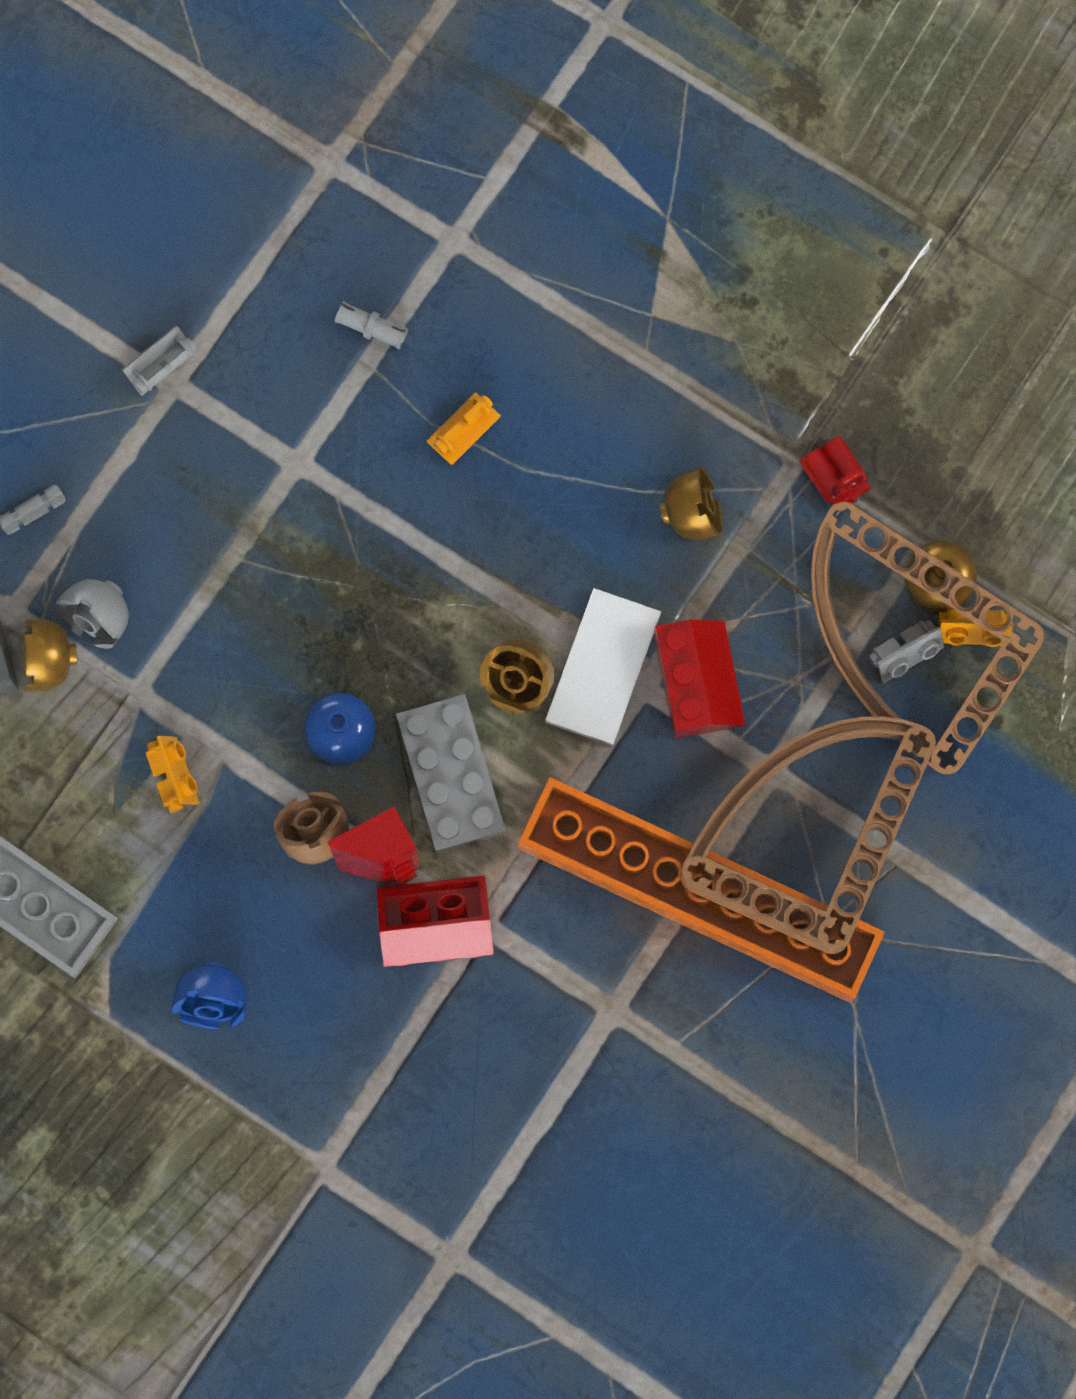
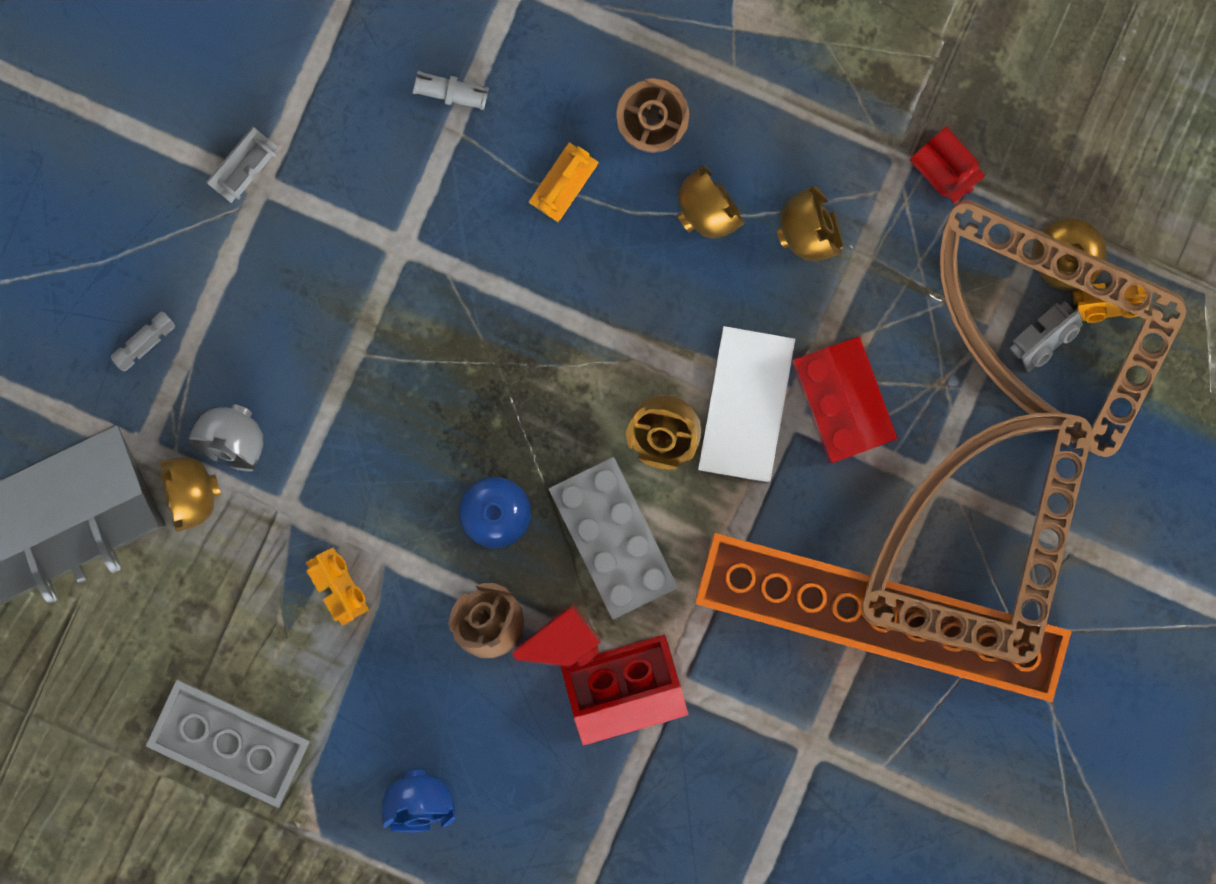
camera: 10 degrees left, 10 degrees up
(559, 376) = (652, 115): none -> medium nougat cylinder
(596, 470) = (707, 206): none -> pearl gold cylinder

